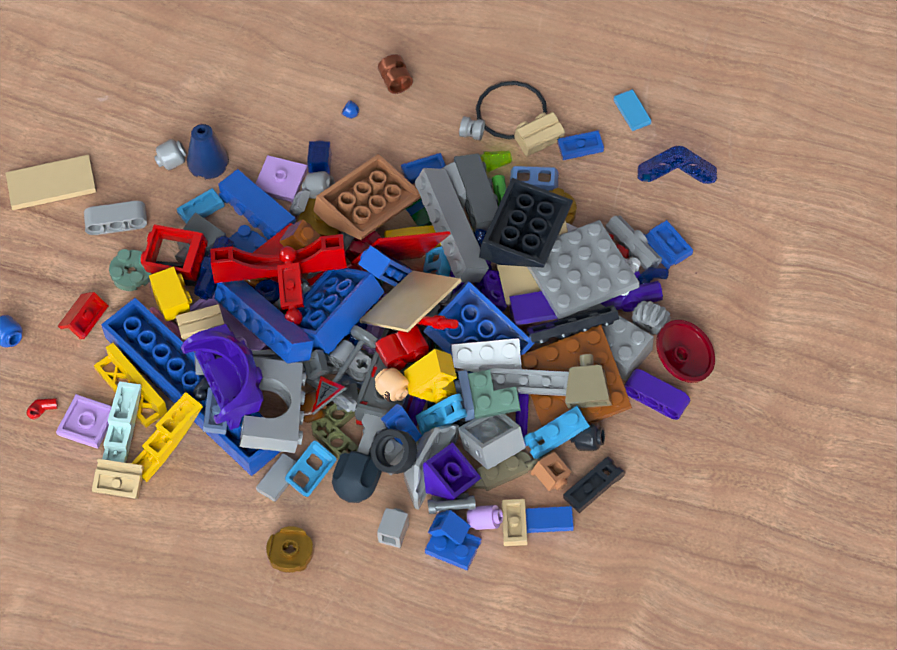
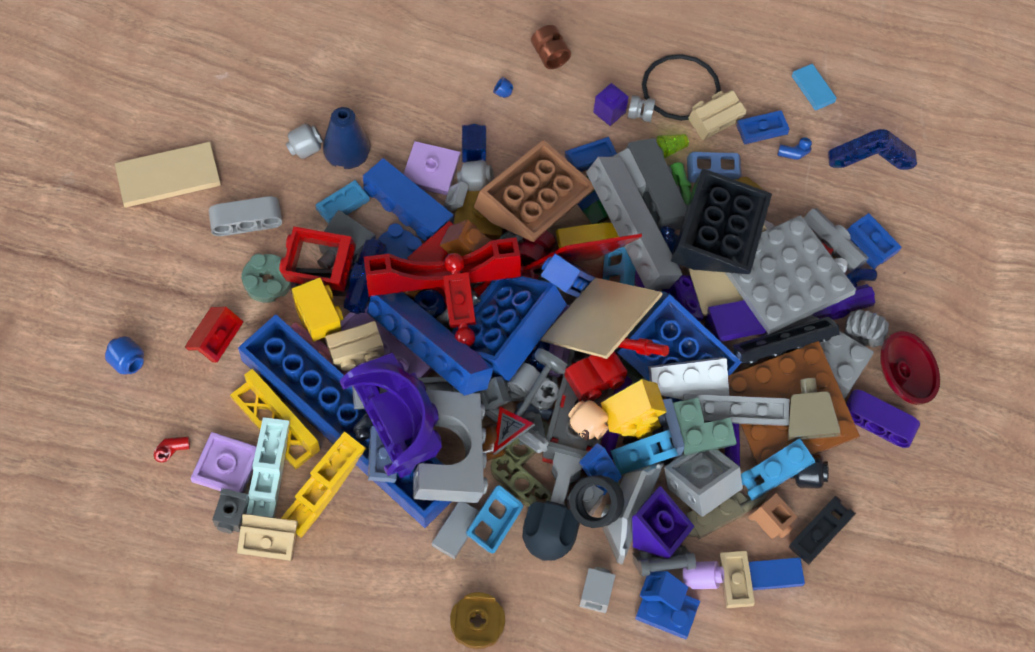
camera: 10 degrees left, 5 degrees up
(93, 451) = (233, 521): none -> dark grey brick
(444, 124) = (610, 104): none -> dark purple brick
(610, 167) = (797, 151): none -> blue arm

